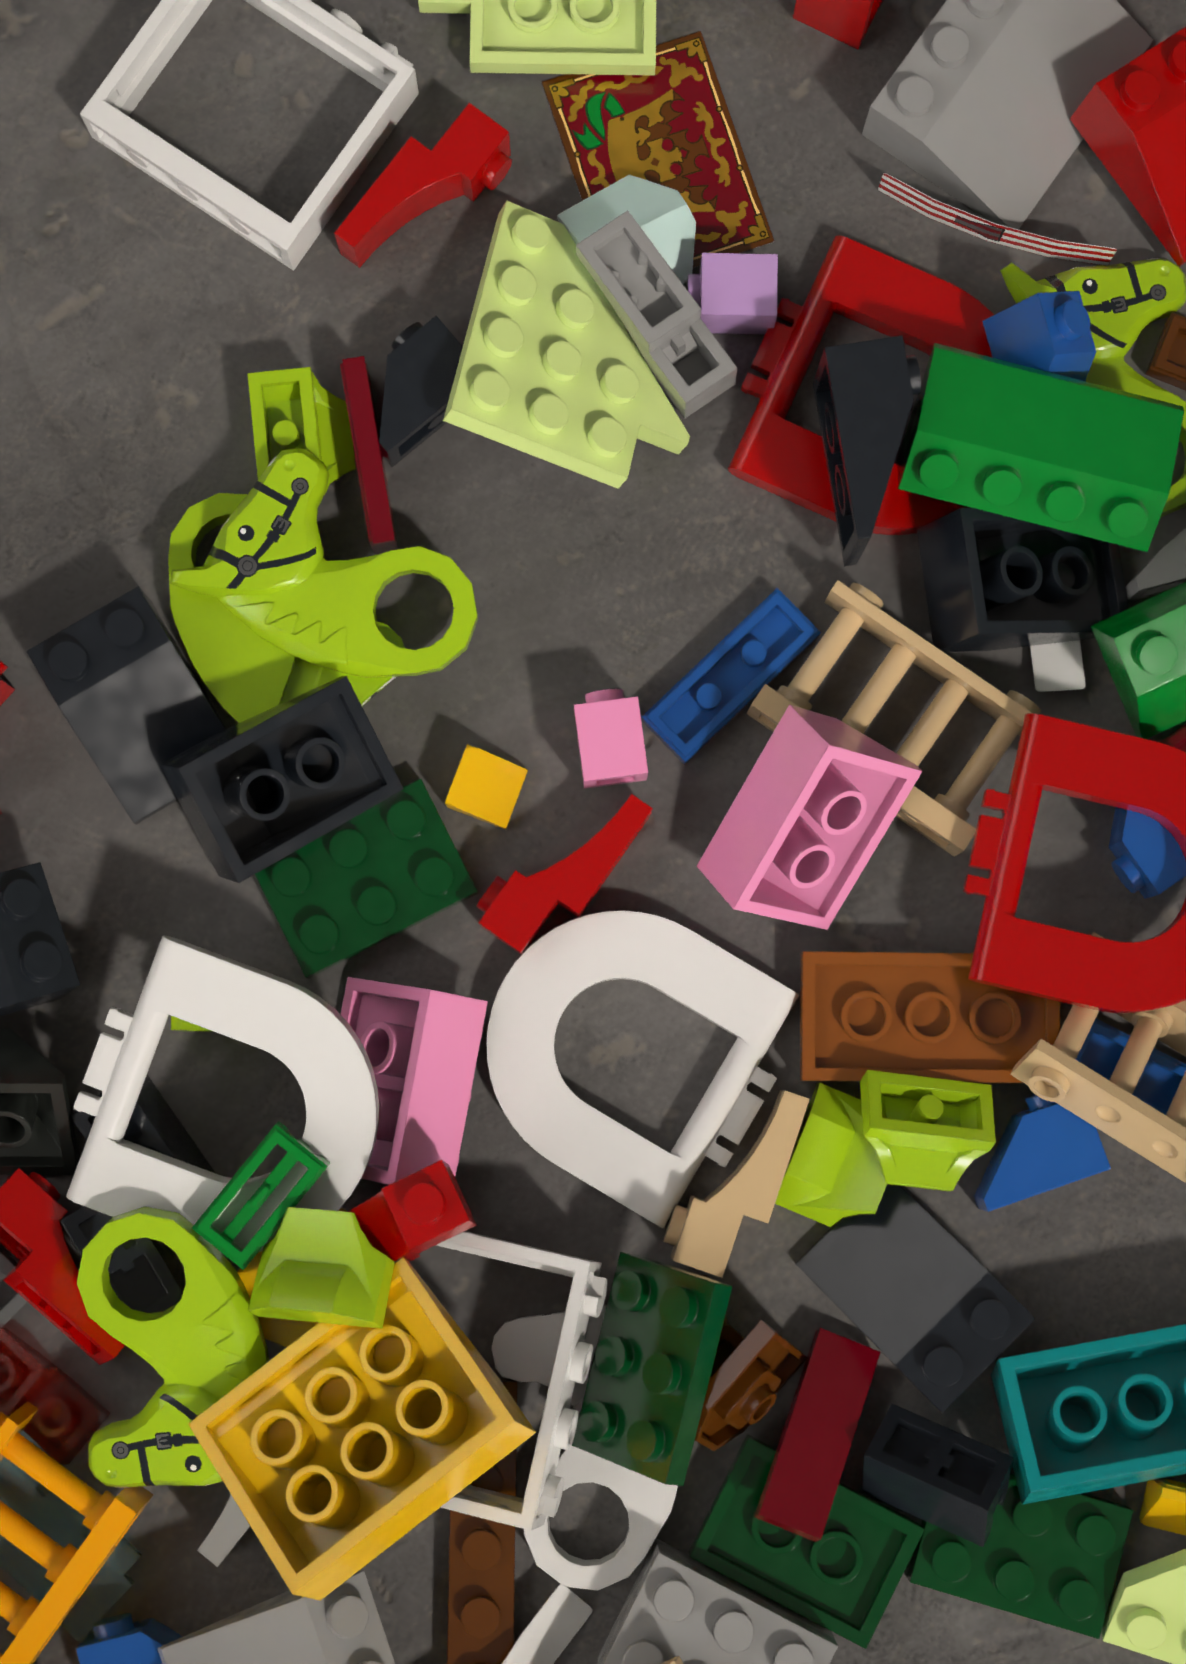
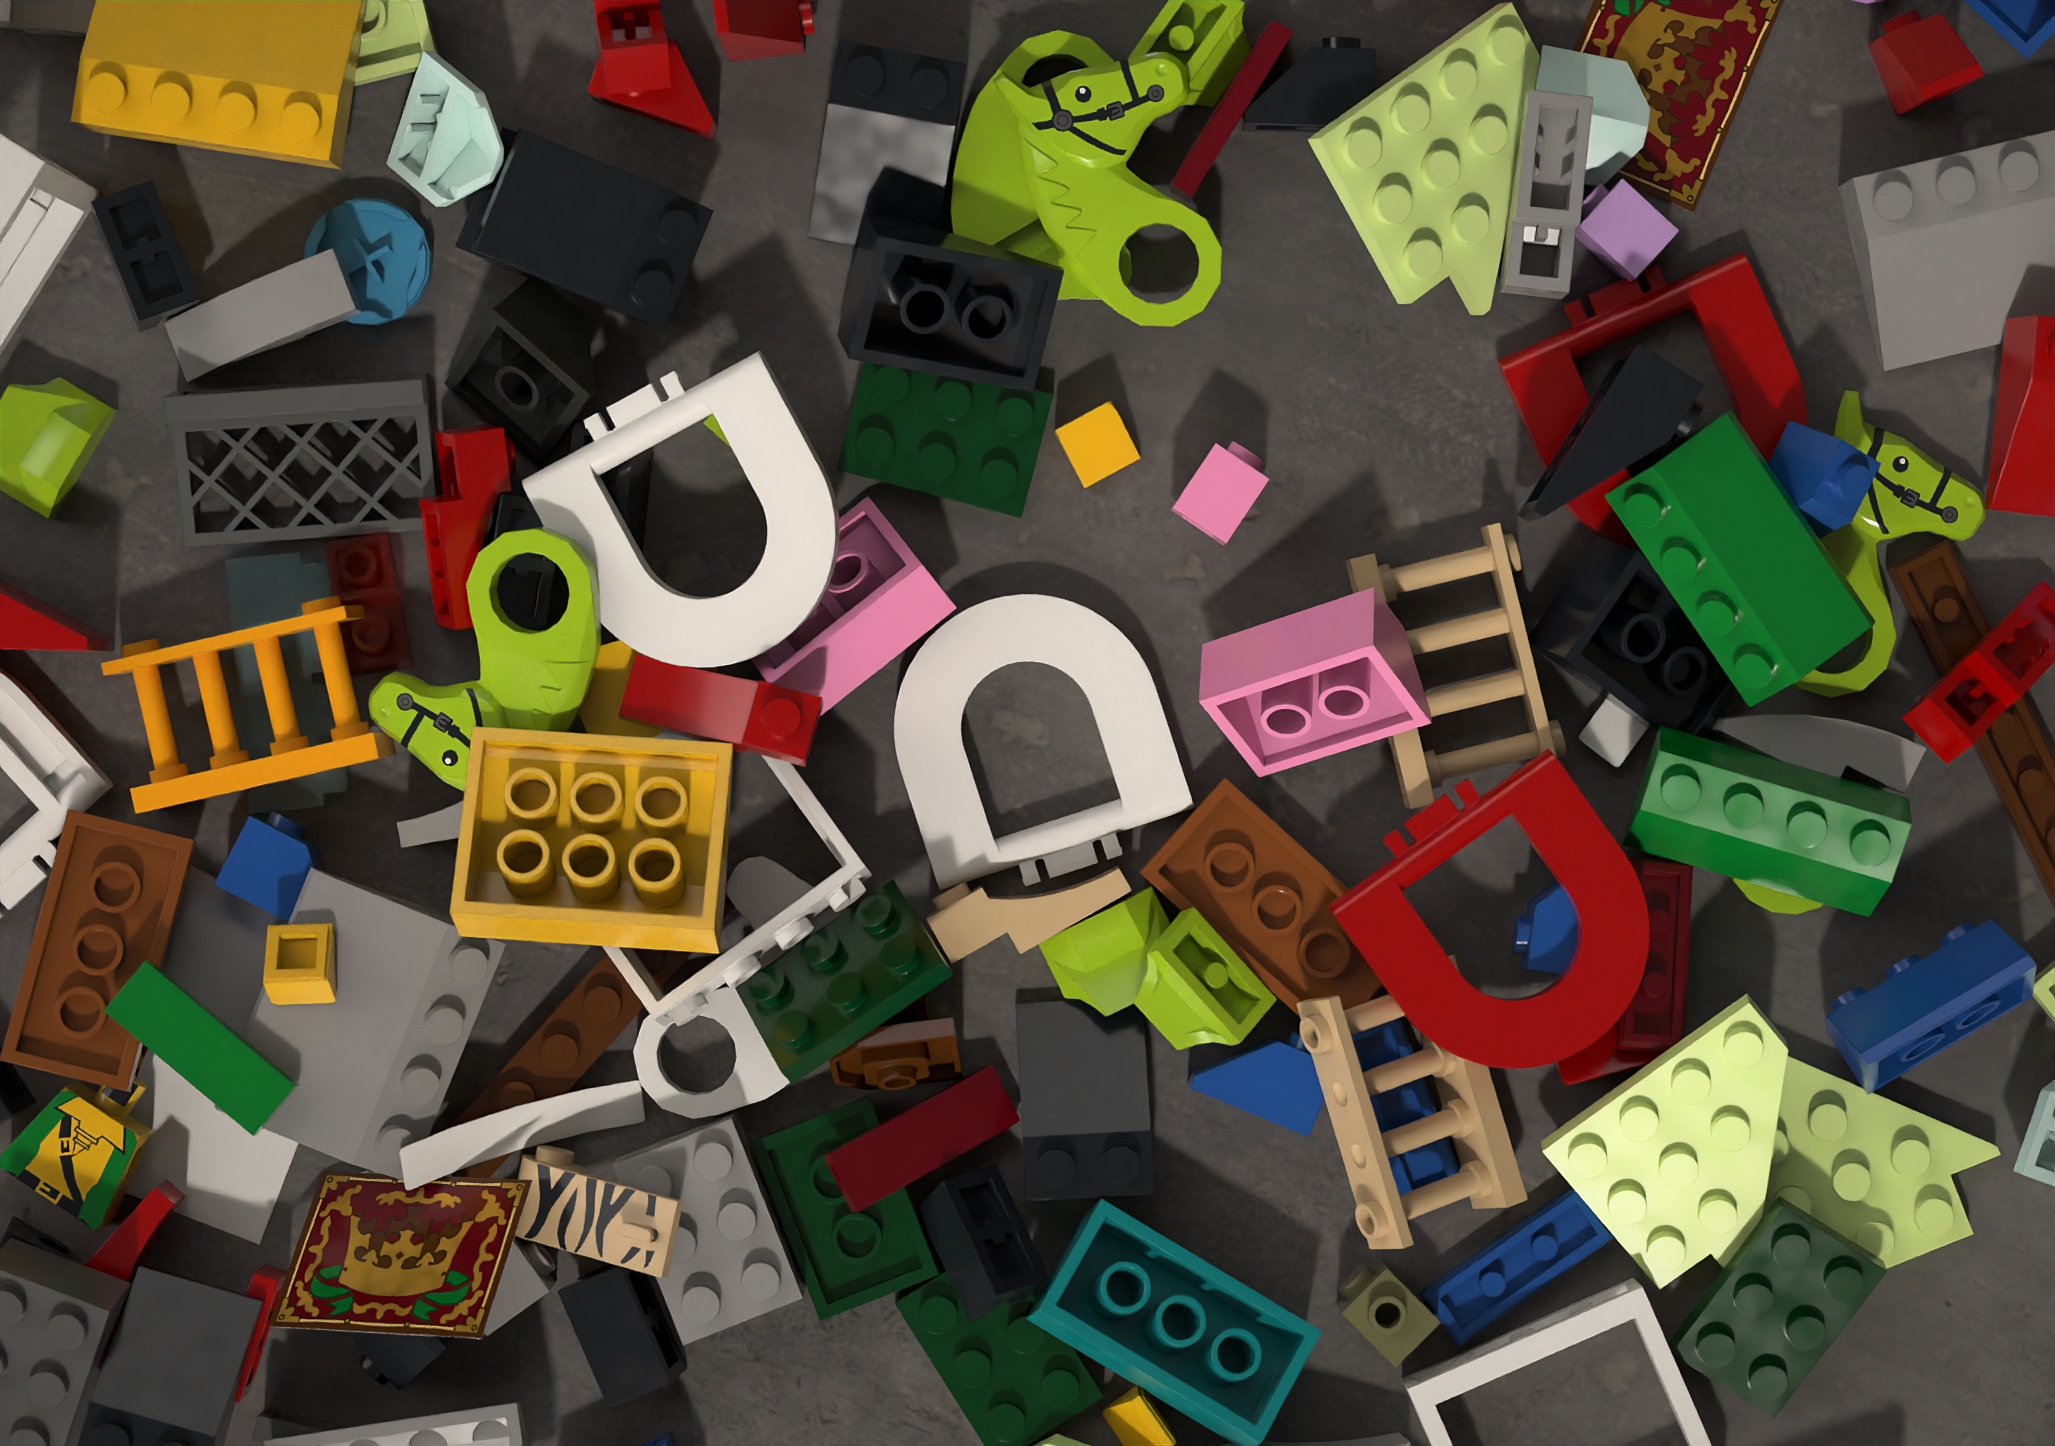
camera: 45 degrees right, 5 degrees up
(296, 1151) = (721, 597): green tile -> none
(322, 1272) = (664, 701): lime slope -> none
(523, 904) = (1046, 559): red slope -> none
(730, 676) = (1357, 521): blue tile -> none
(990, 231) = (1865, 355): sticker -> none

